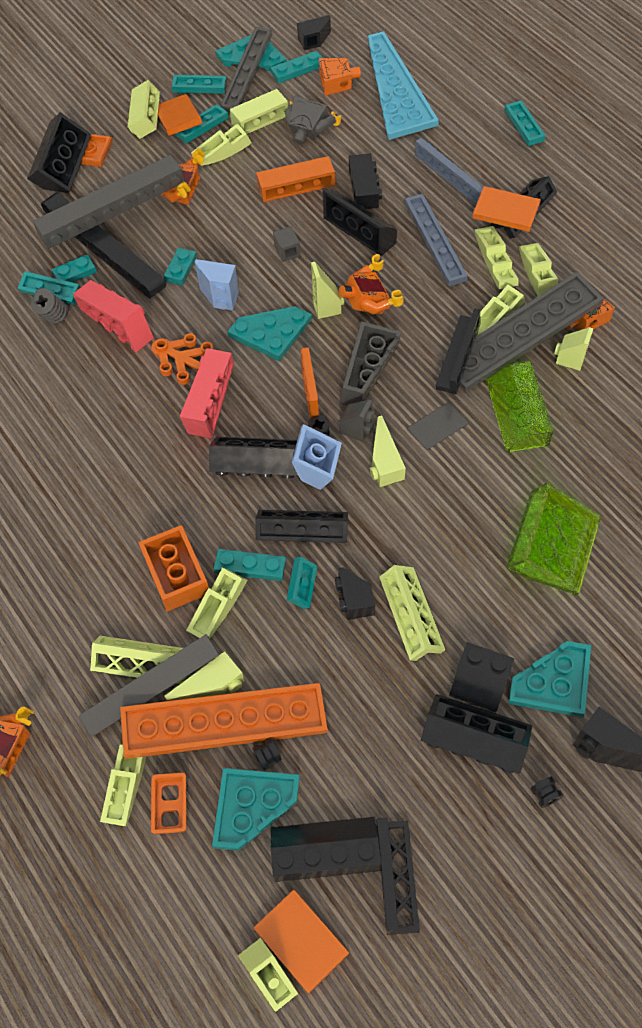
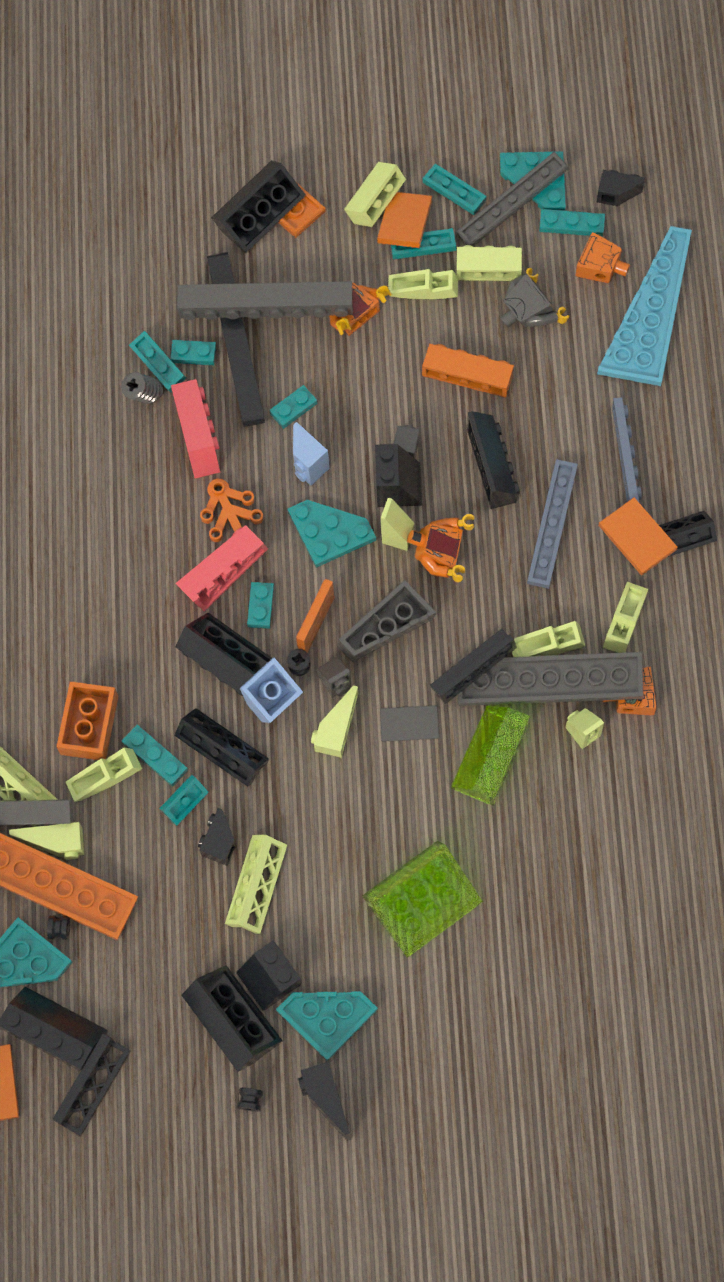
camera: 35 degrees right, 10 degrees up
(256, 408) = (260, 605): none -> teal plate
(291, 264) = (397, 476): none -> black slope
(364, 181) = (532, 414): black brick -> none
(495, 257) = (595, 580): yellowish green slope -> none

